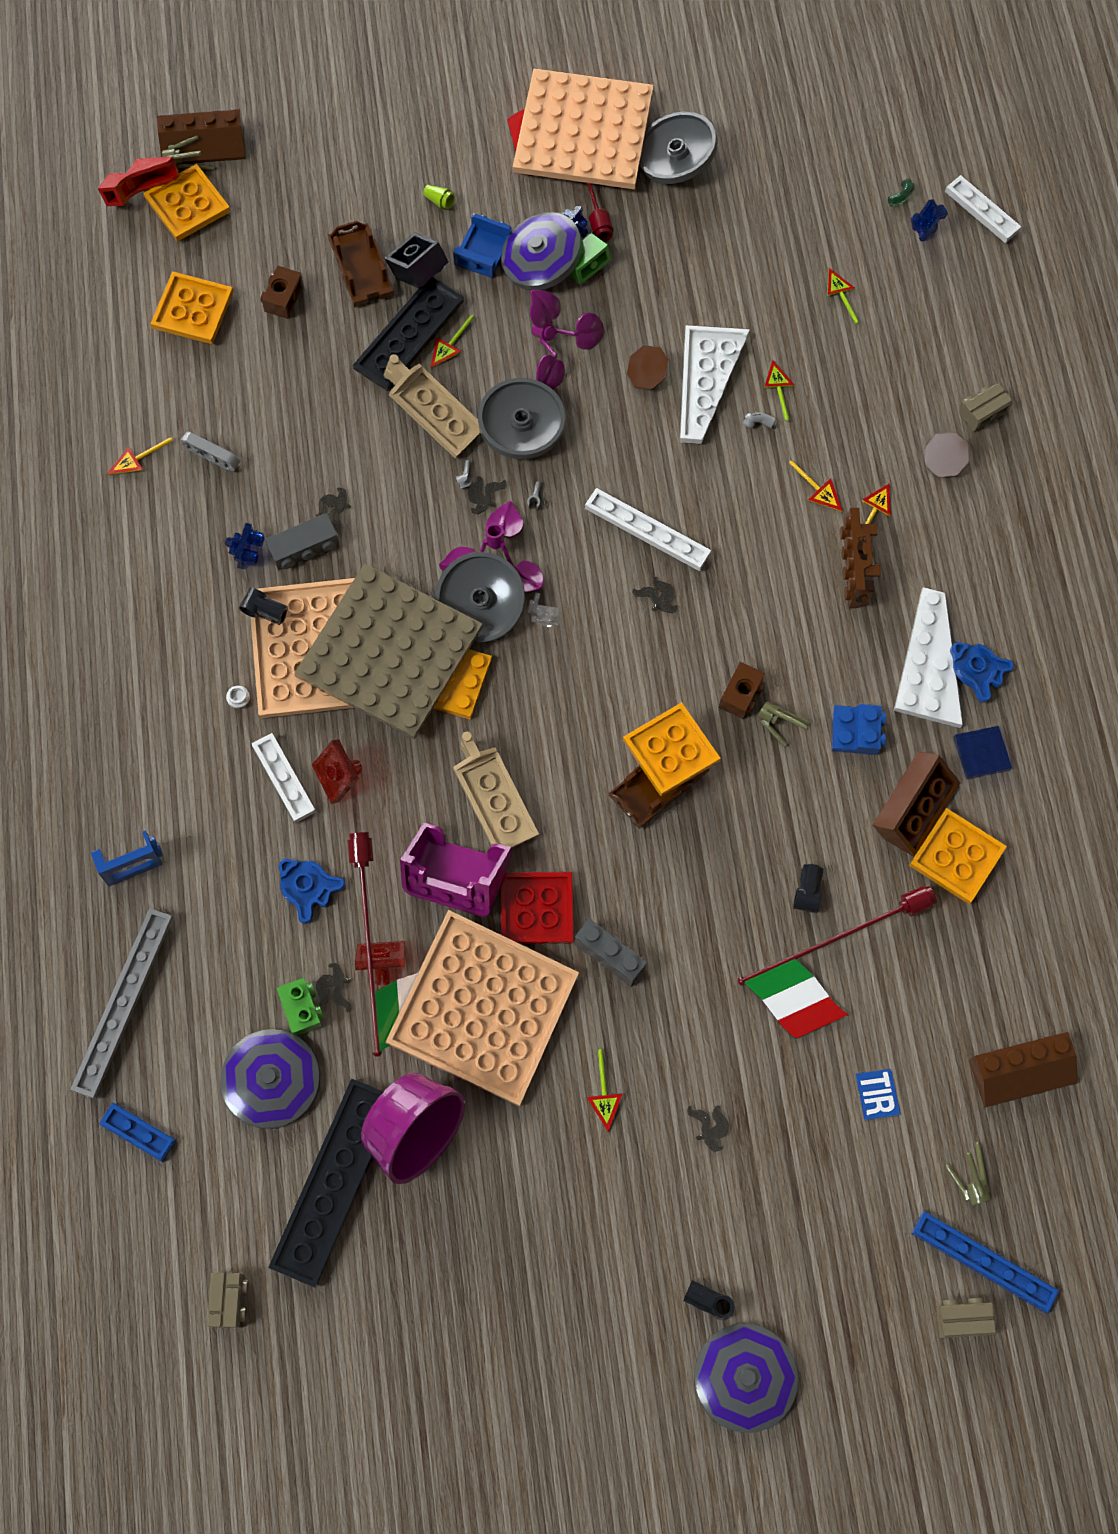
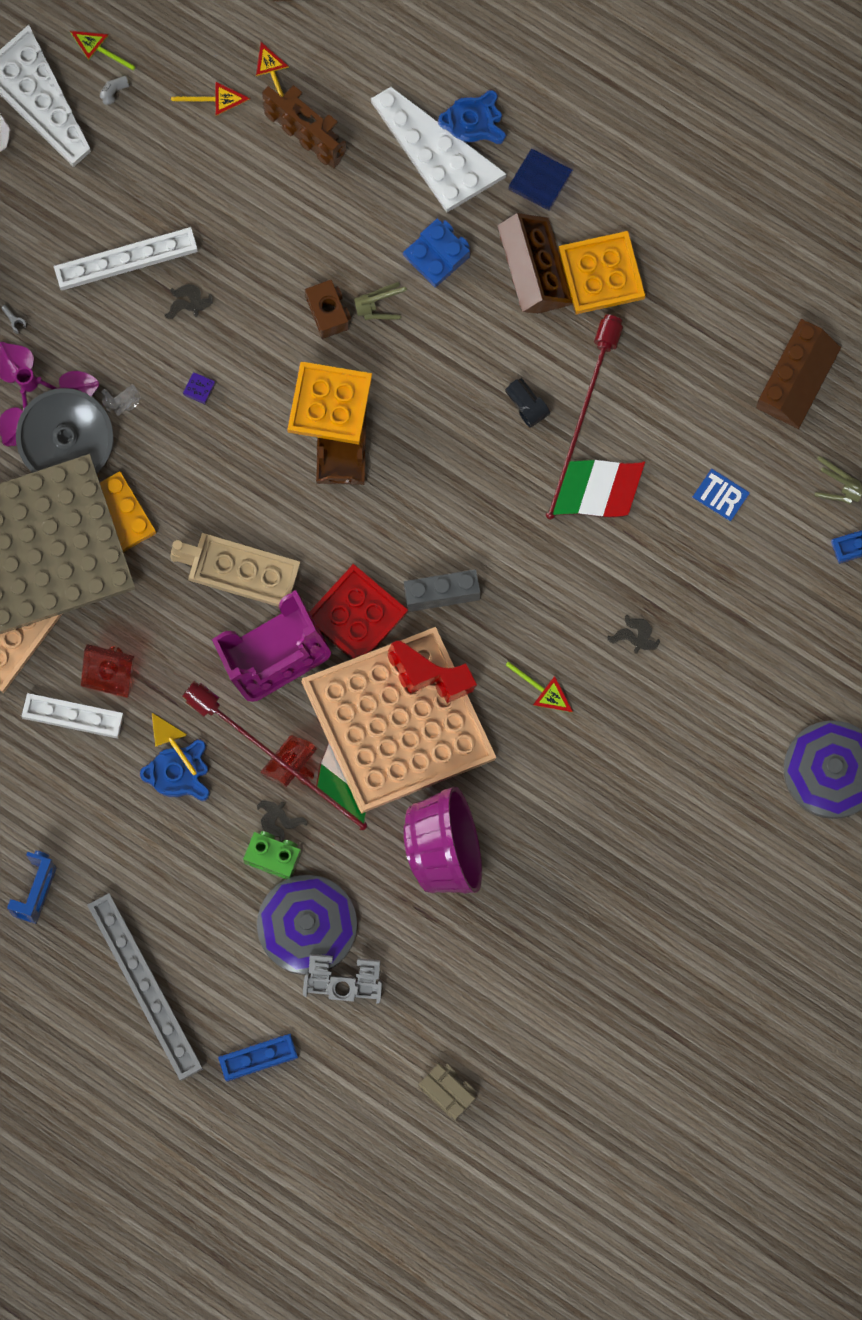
camera: 45 degrees left, 5 degrees up
(261, 1159) = (363, 988): none -> light grey piece
(327, 1190) = (430, 945): black plate -> none
(329, 853) = (167, 733): none -> yellow piece
(530, 991) = (419, 672): none -> red arch
(602, 656) = (199, 388): none -> dark purple tile
(706, 1299) = (756, 747): black piece -> none

